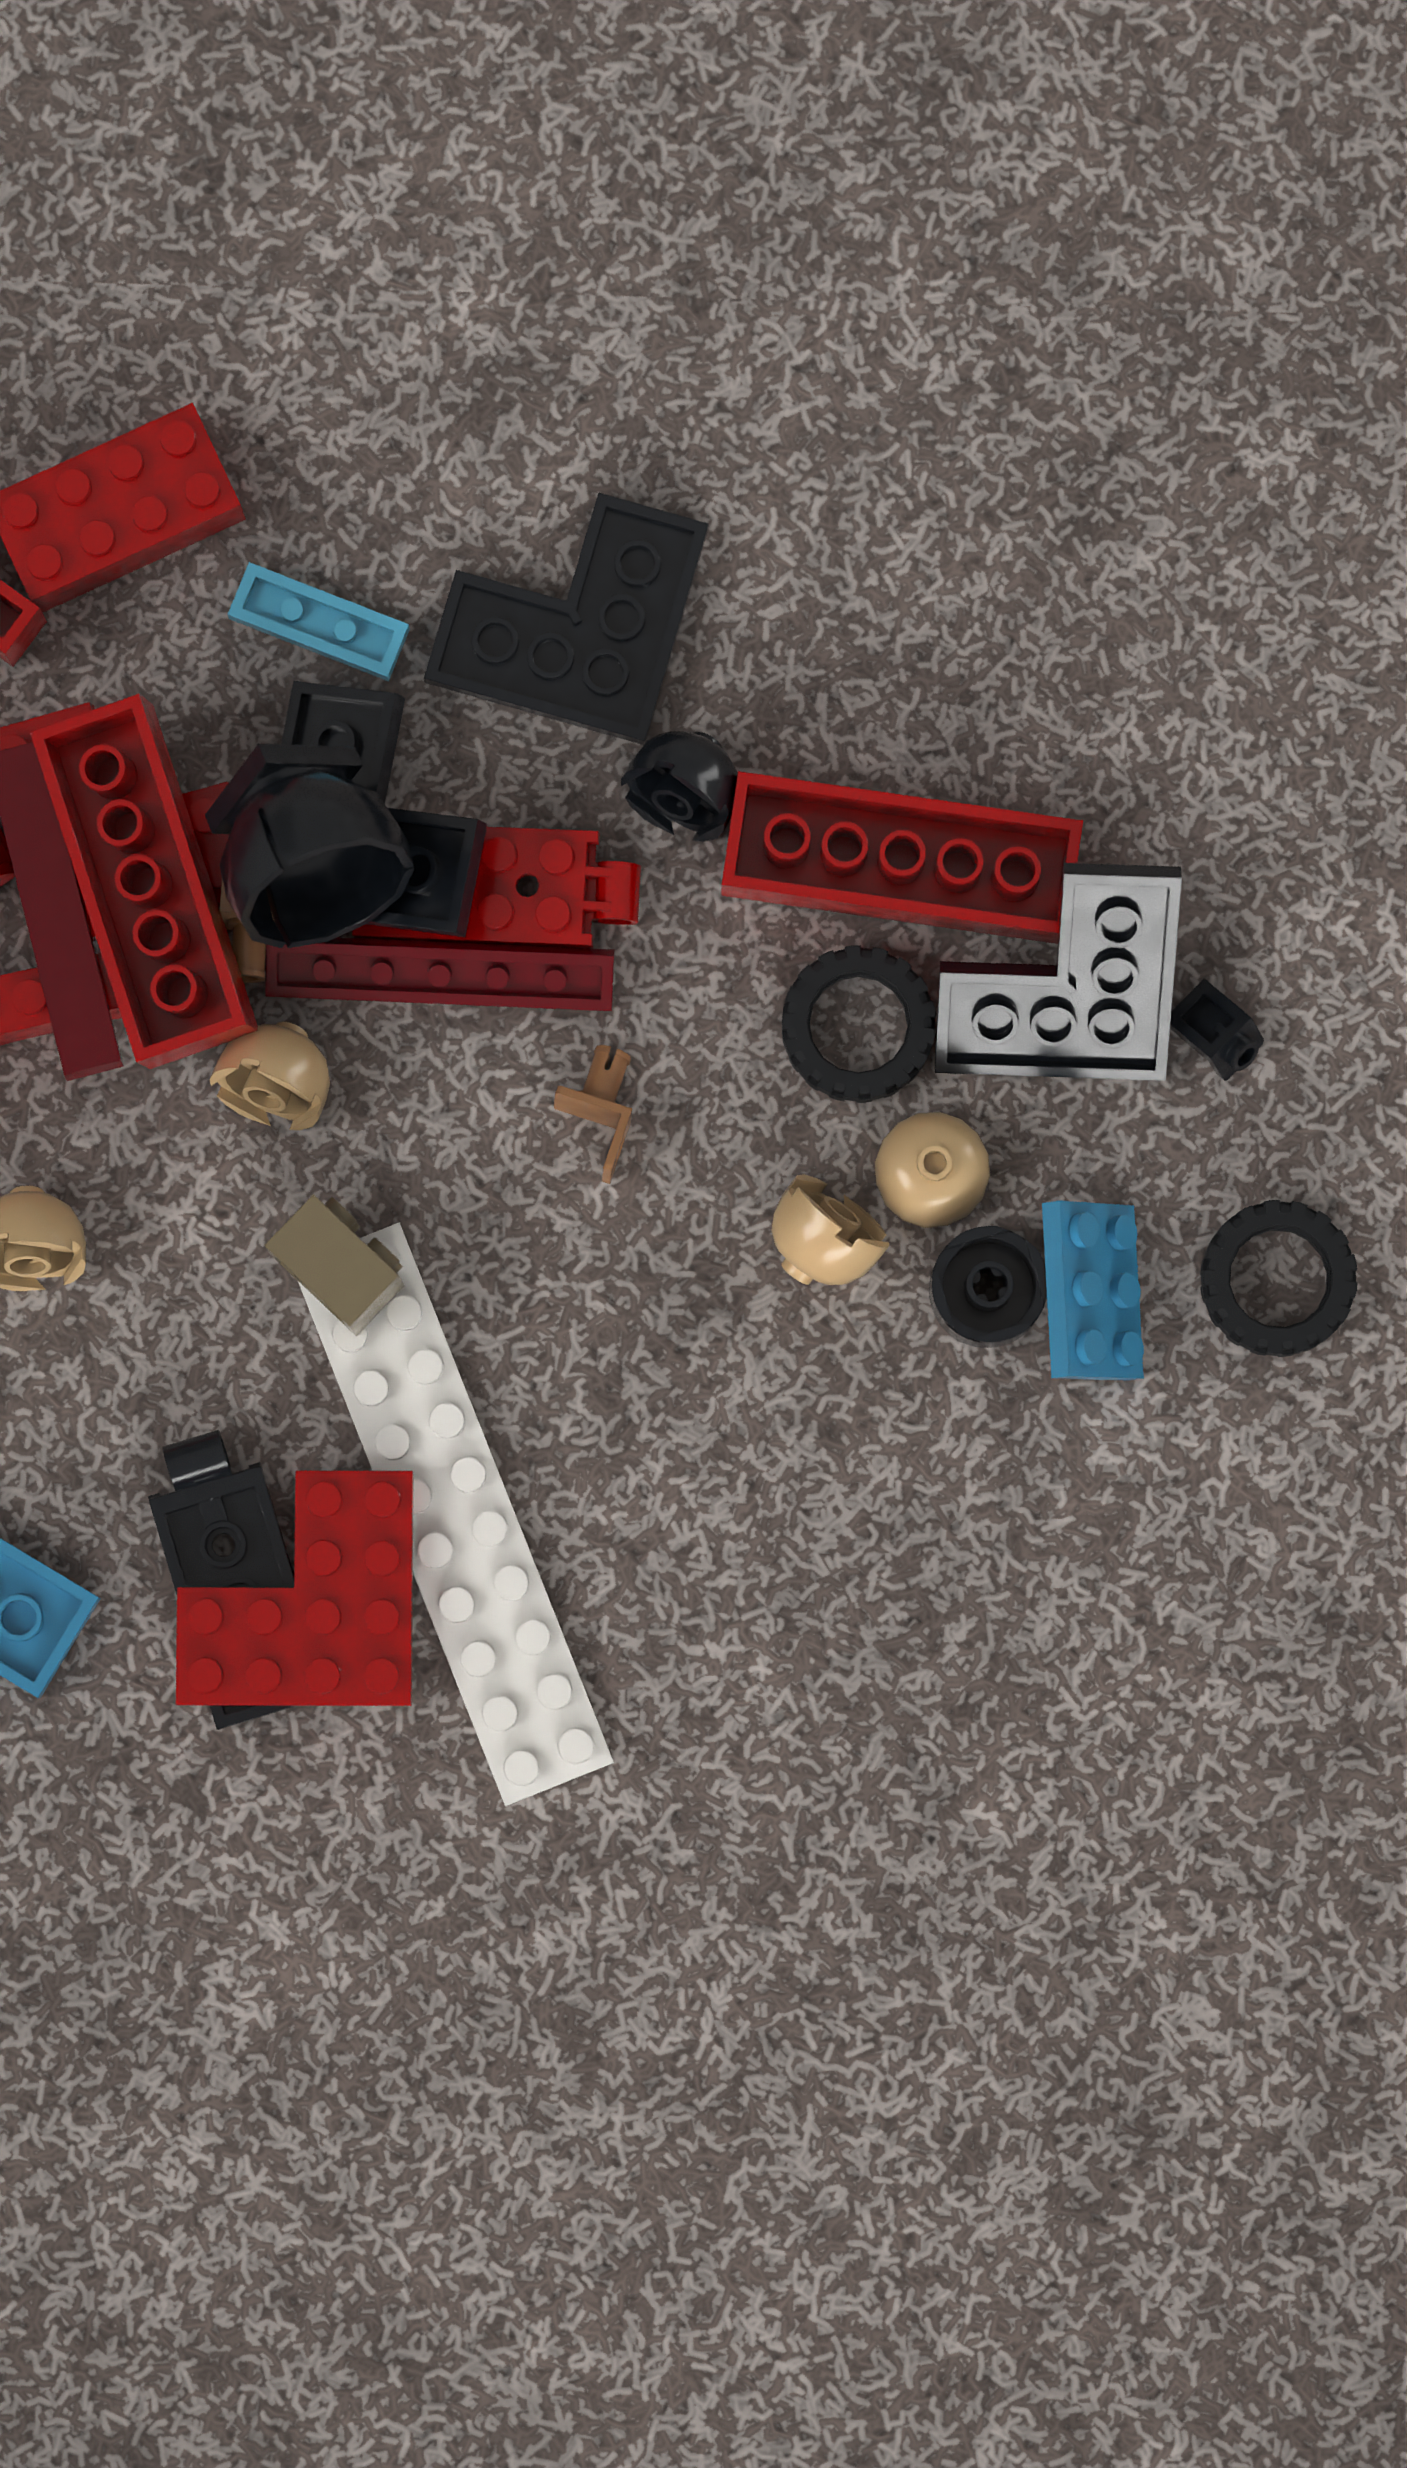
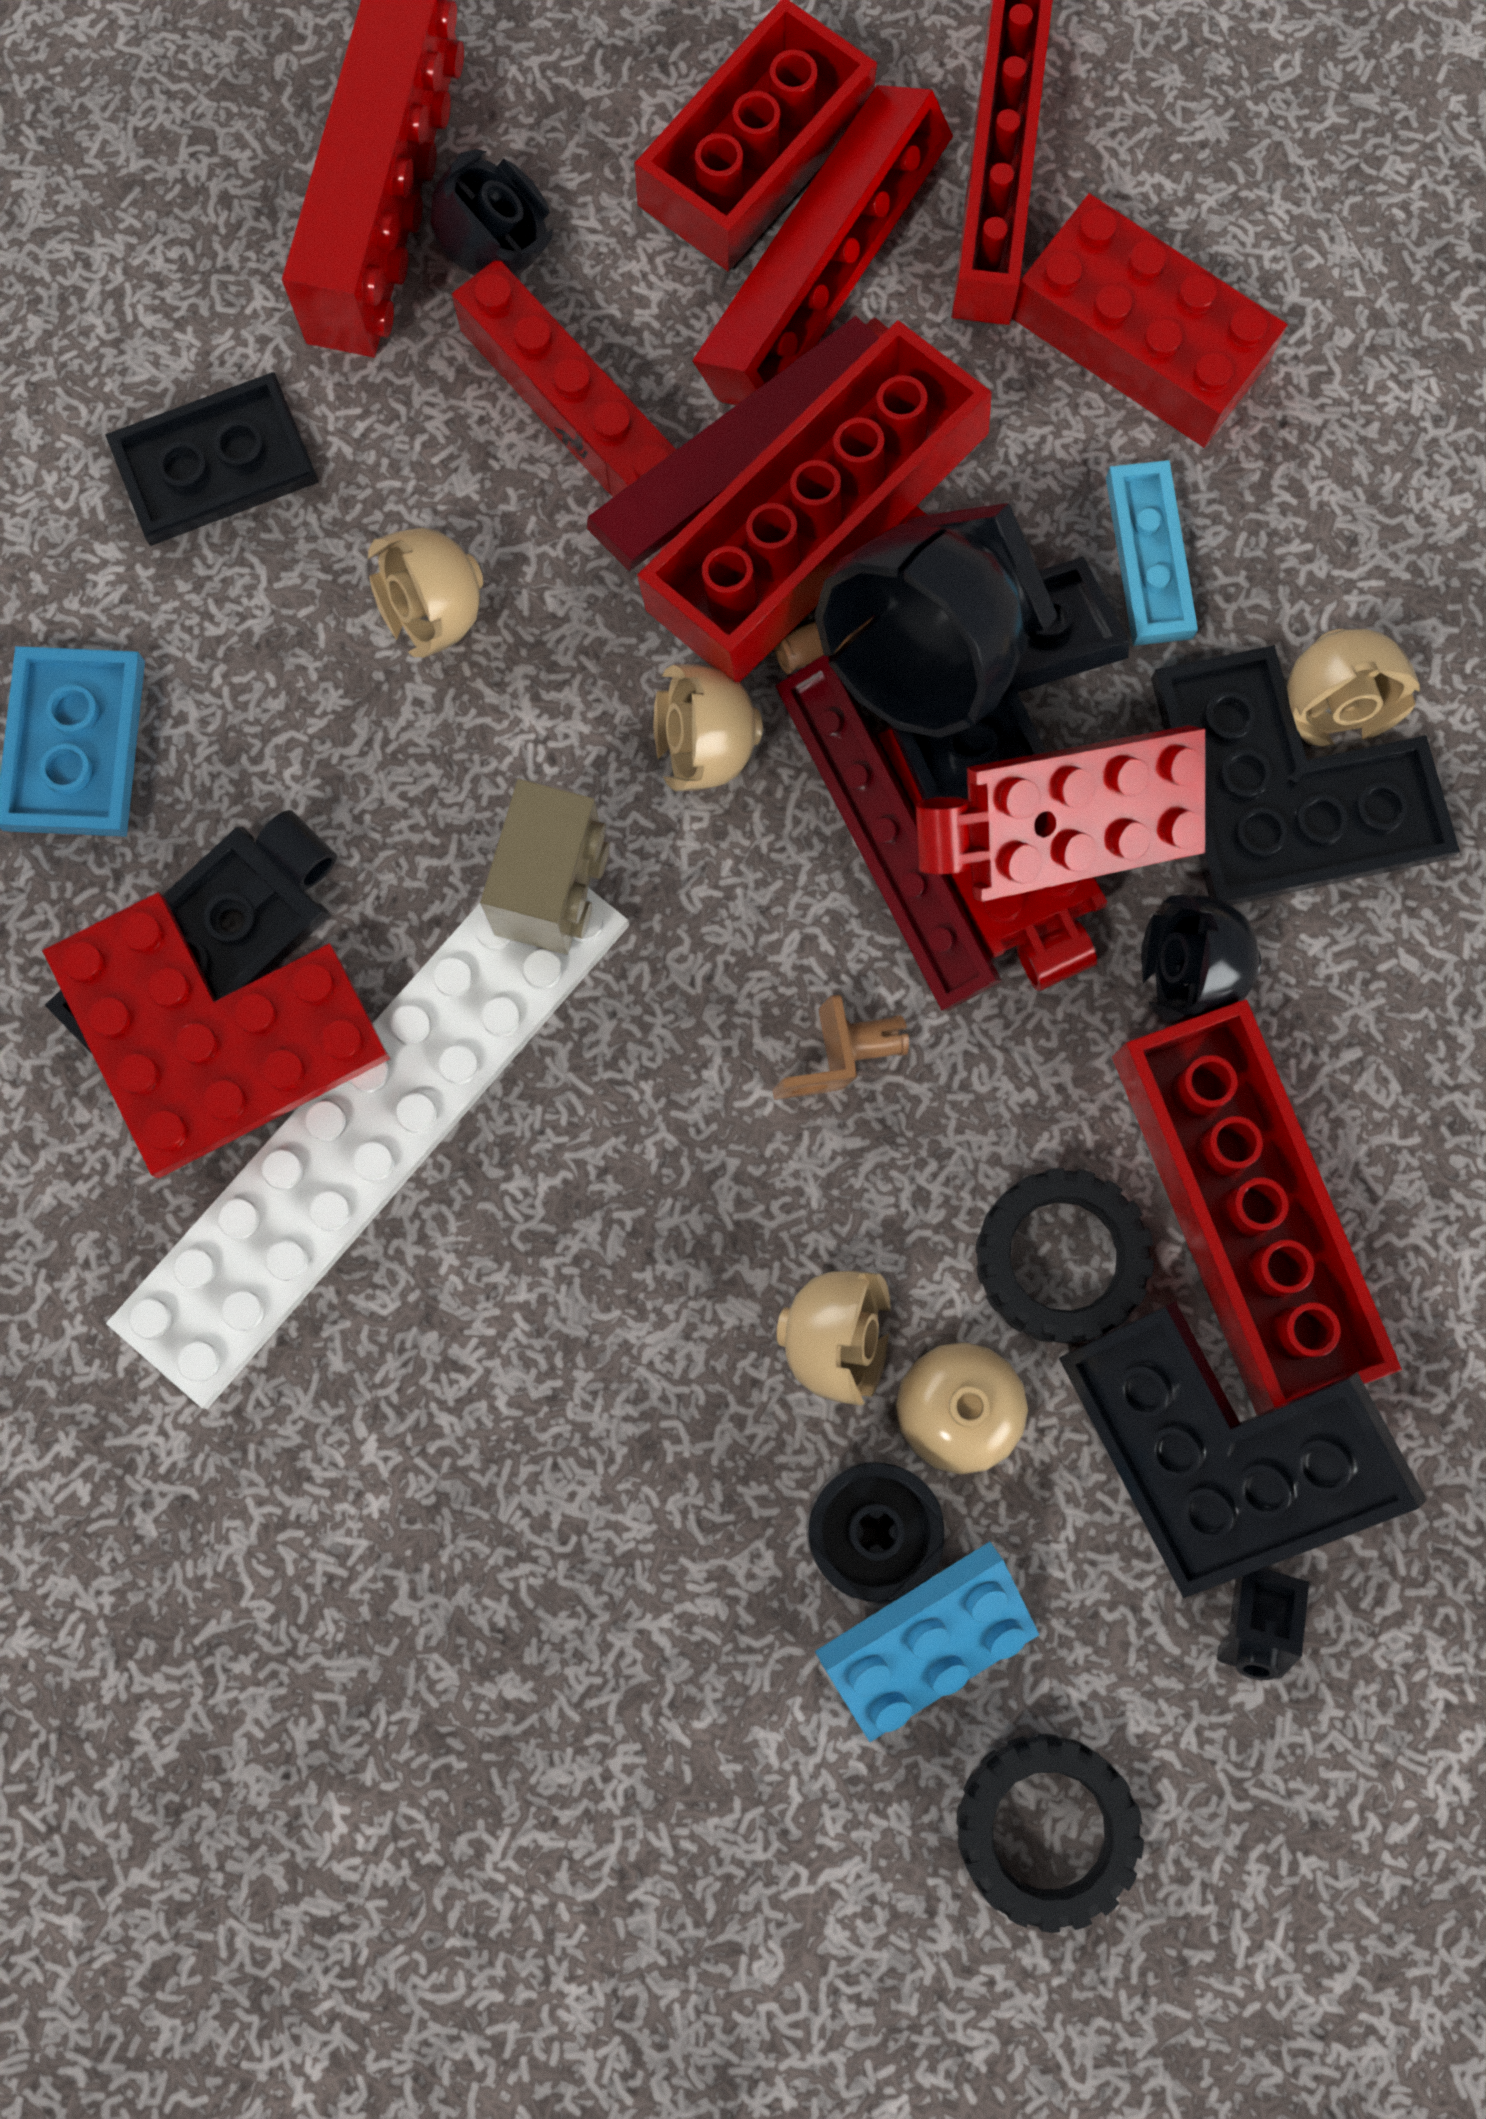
camera: 60 degrees right, 5 degrees down
(521, 530) = (1356, 676): none -> tan cylinder
(526, 797) = (1105, 807): none -> hinge

